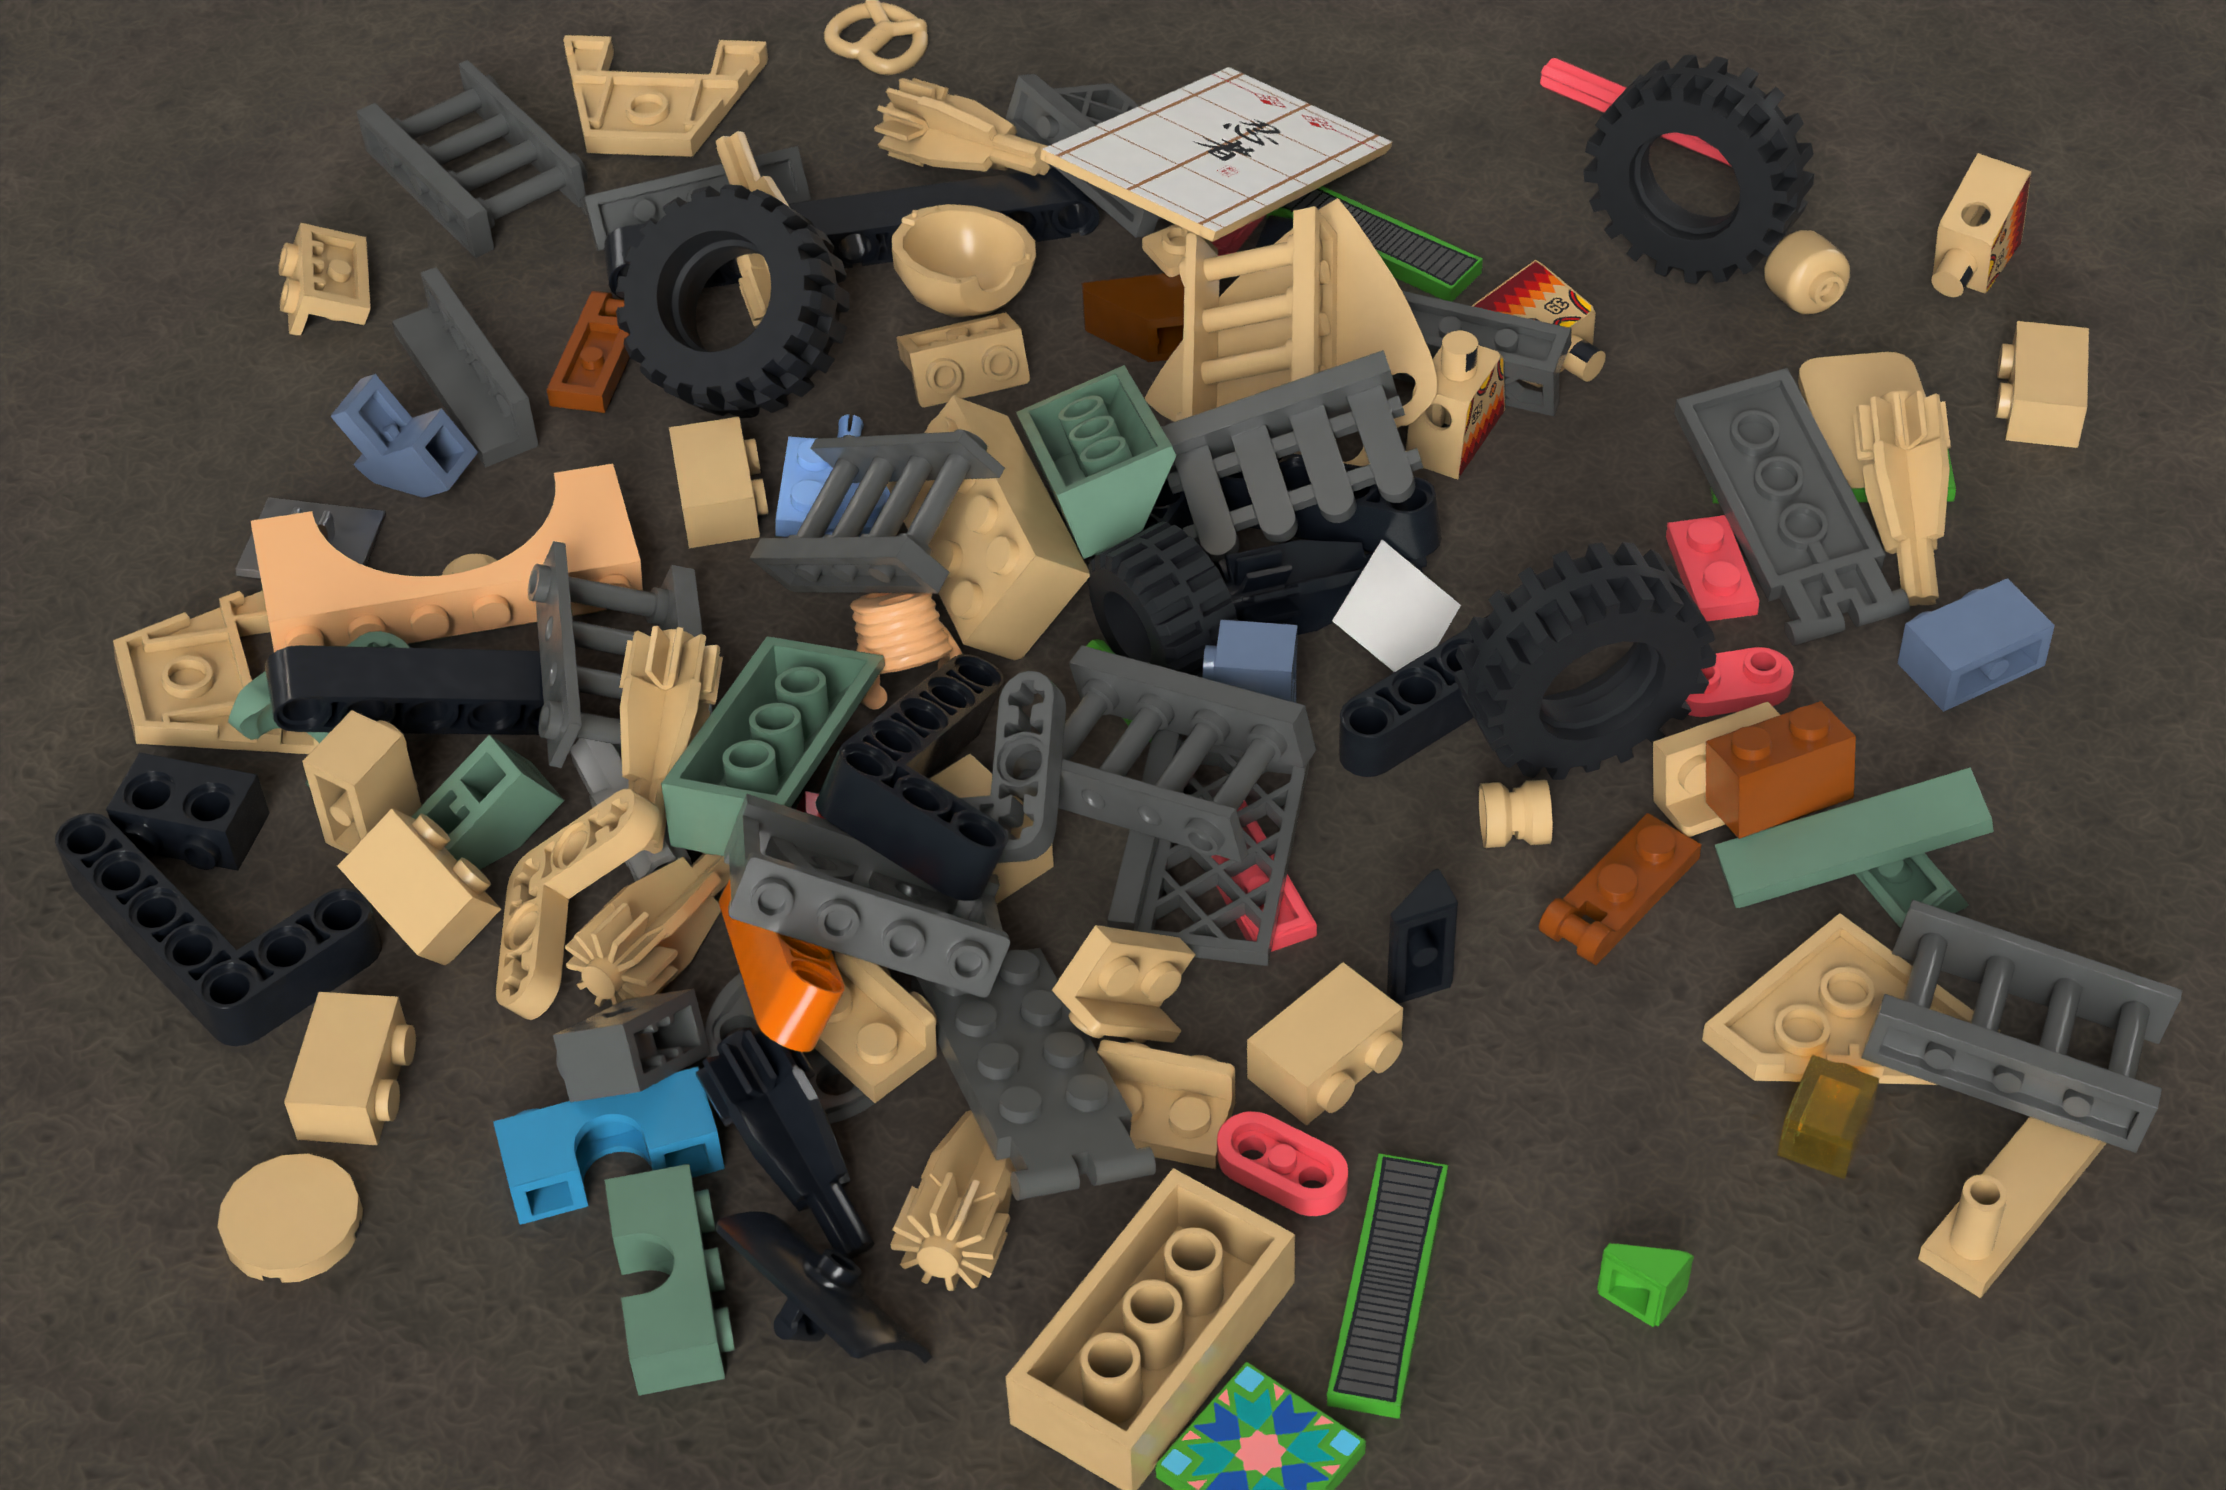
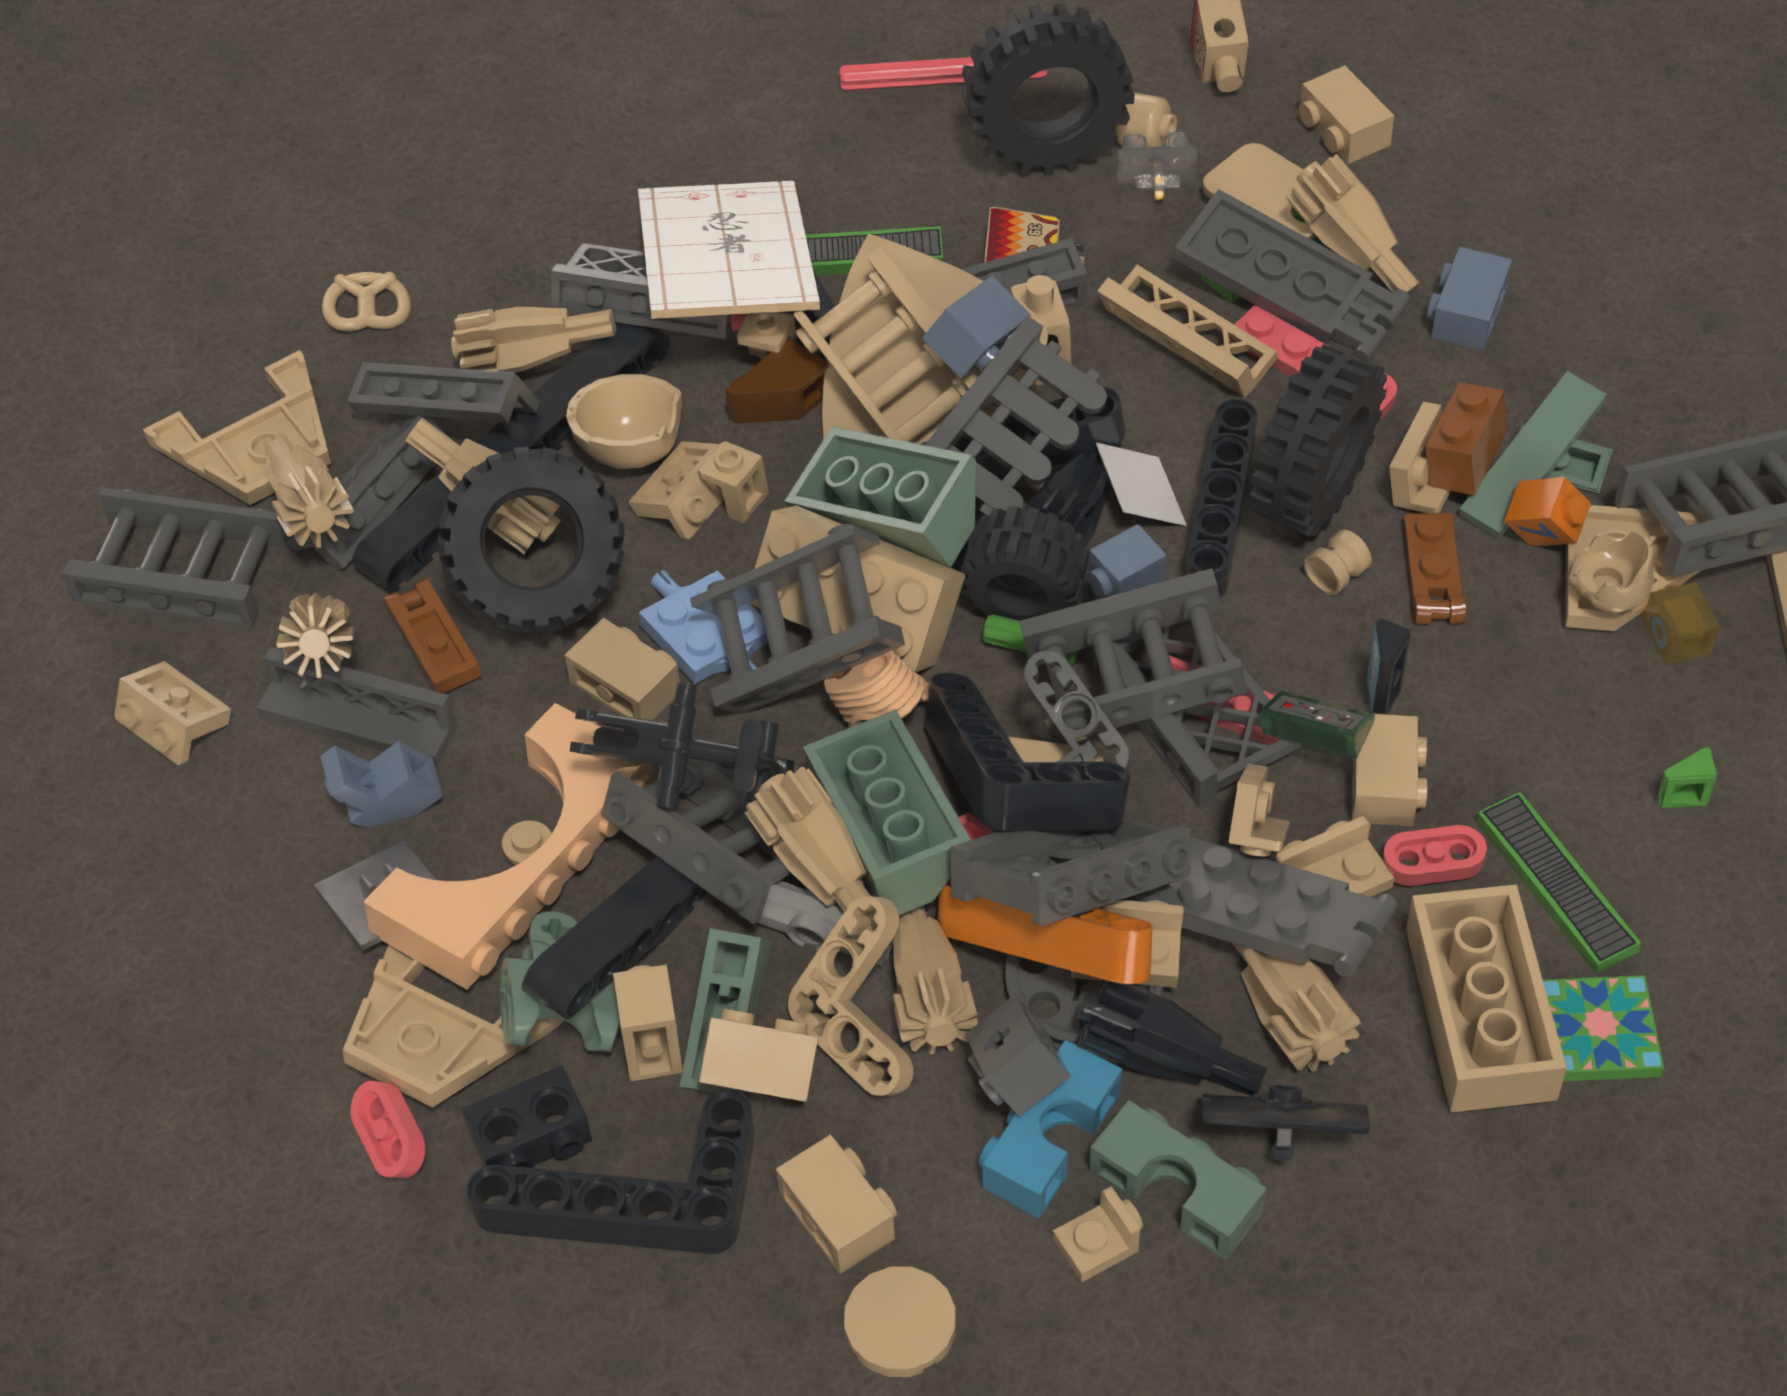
camera: 40 degrees left, 5 degrees up
(76, 749) = (387, 1129): none -> coral plate
(473, 269) = (316, 632): none -> tan piece
(542, 1278) = (1100, 1235): none -> tan bracket
(600, 150) = (304, 492): none -> tan piece
(617, 534) = (671, 745): none -> black piece
(820, 137) = (440, 392): none -> dark grey fence
(1006, 369) = (740, 476): none -> tan bracket
(1286, 941) = (1316, 723): none -> clear green slope
(1331, 329) = (975, 327): none -> sand blue brick
(1596, 480) = (1183, 338): none -> tan fence
(1774, 324) = (1156, 166): none -> clear hips
(1784, 1006) = (1614, 571): none -> tan hair
(1795, 902) = (1547, 512): none -> orange brick

